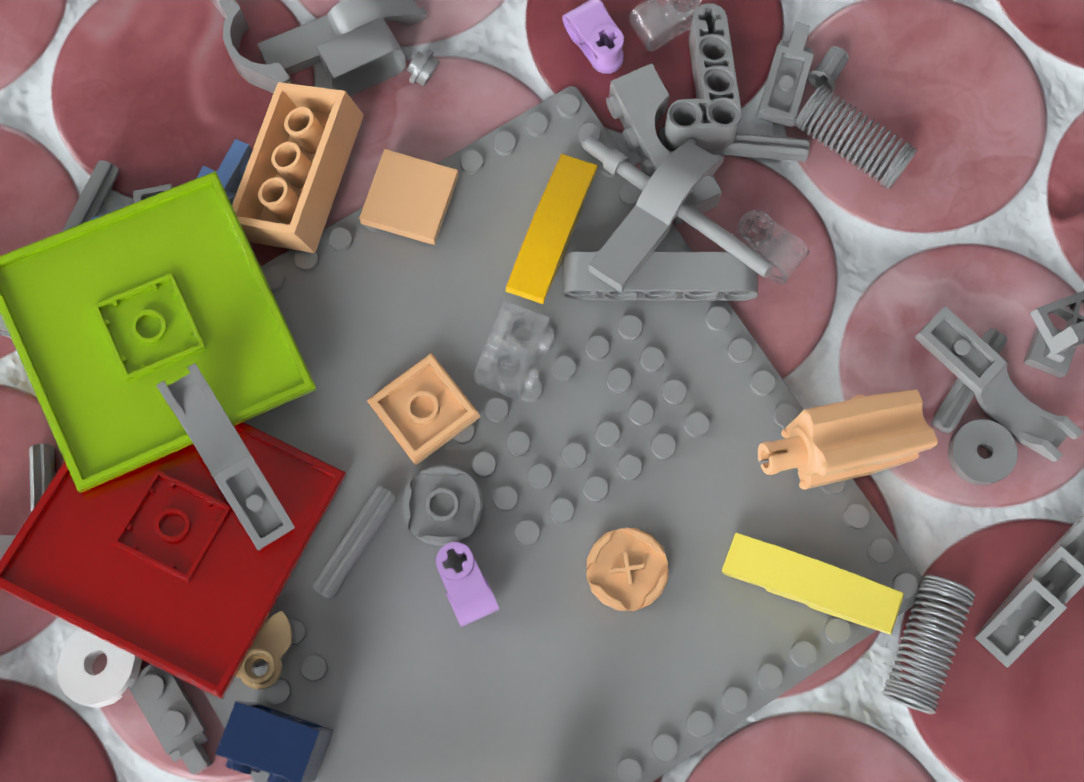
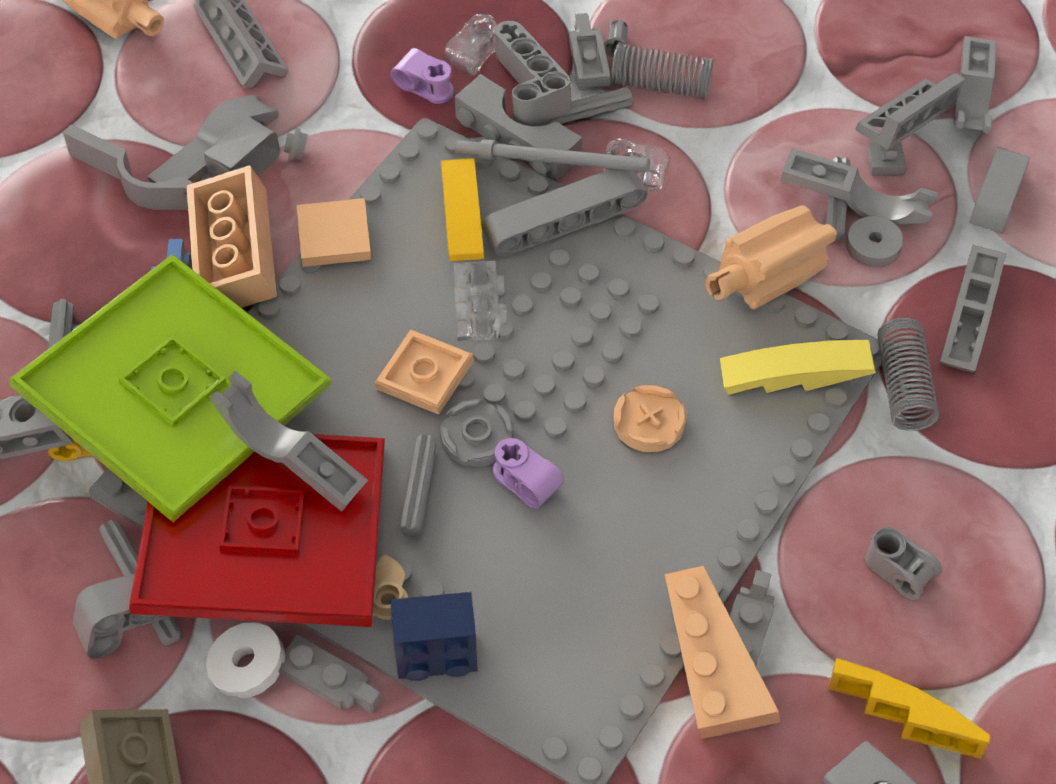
camera: 25 degrees left, 20 degrees down
(653, 214) = (538, 166): light grey piece -> none

